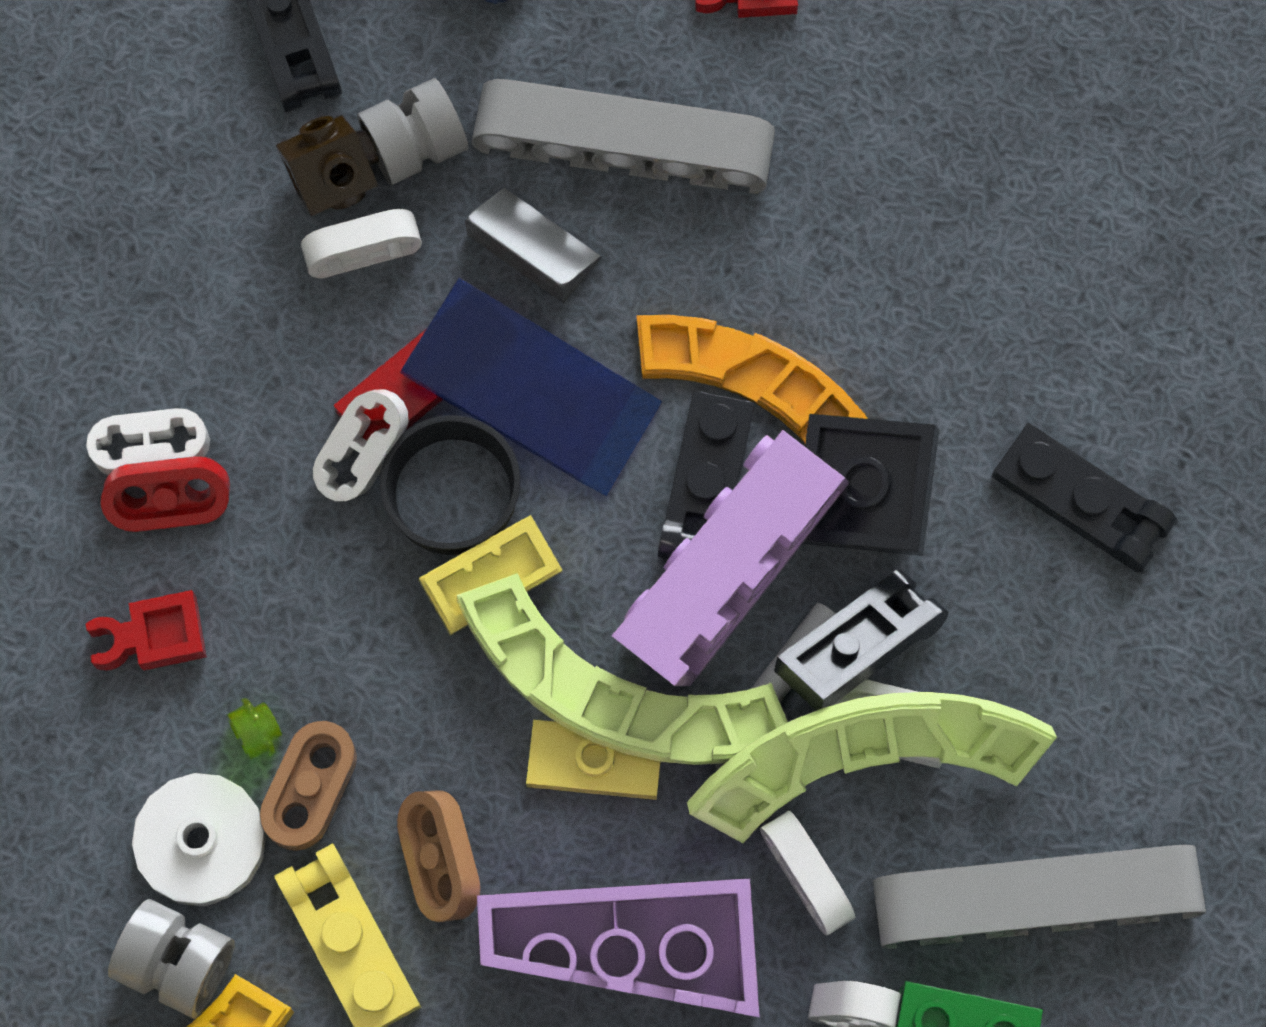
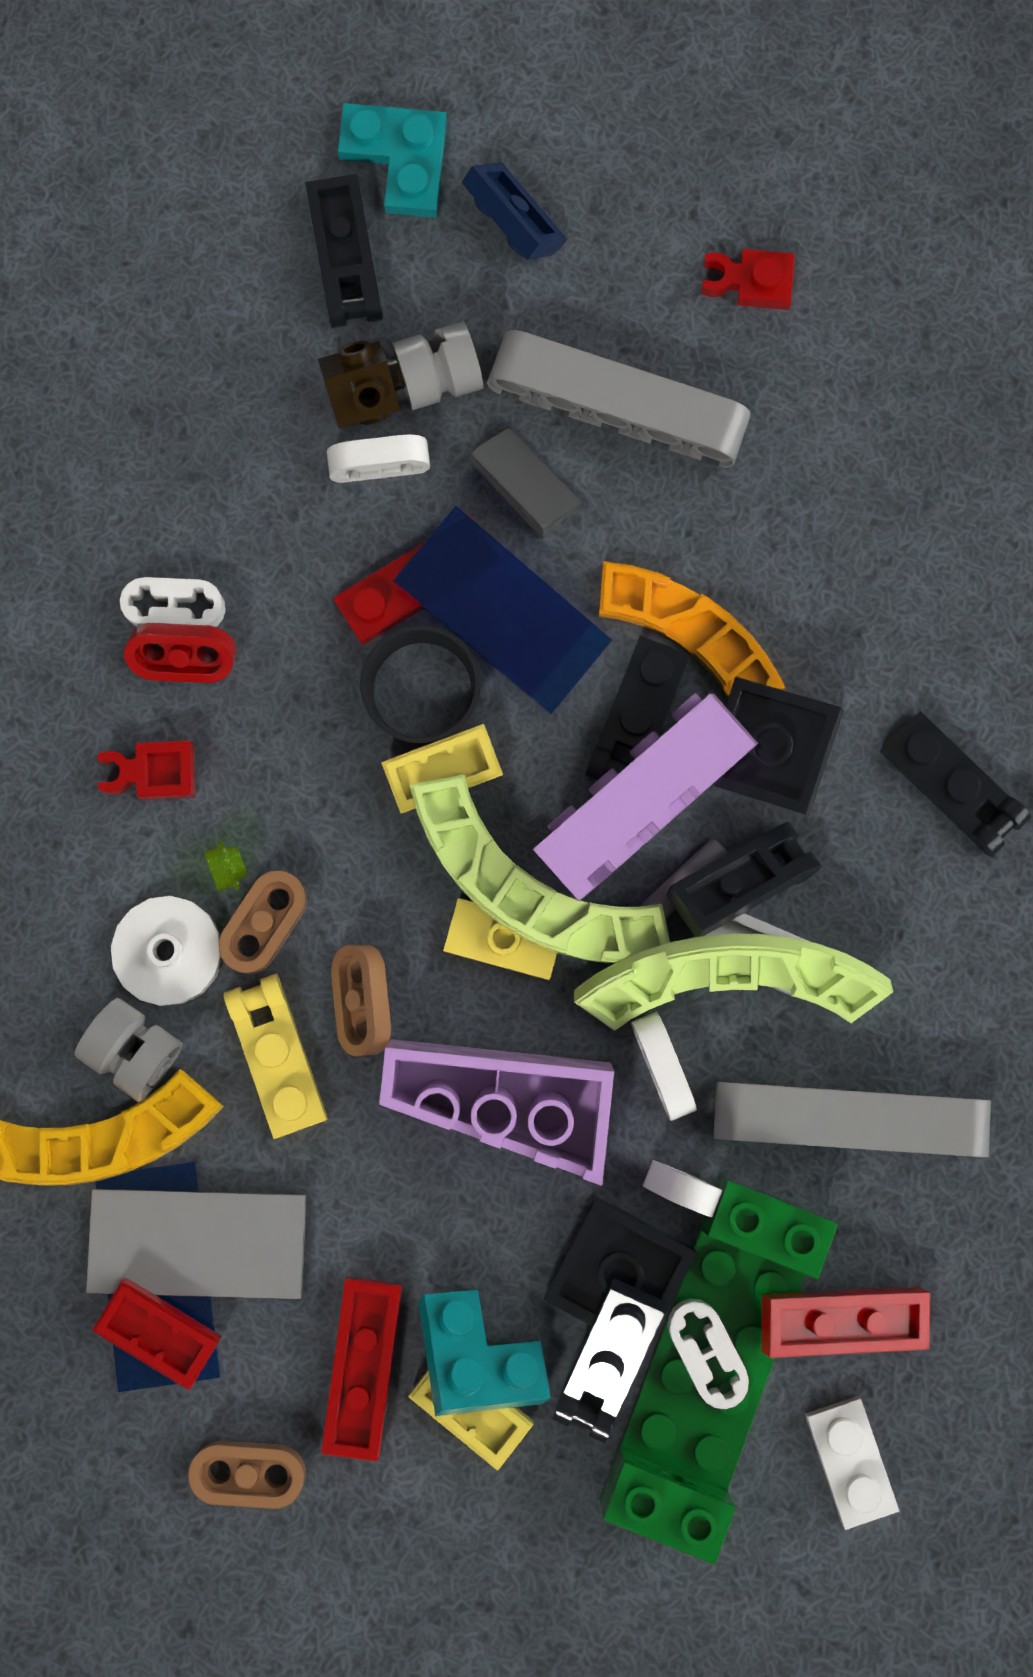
camera: 10 degrees right, 10 degrees up
(348, 437) = (341, 630): white beam -> none

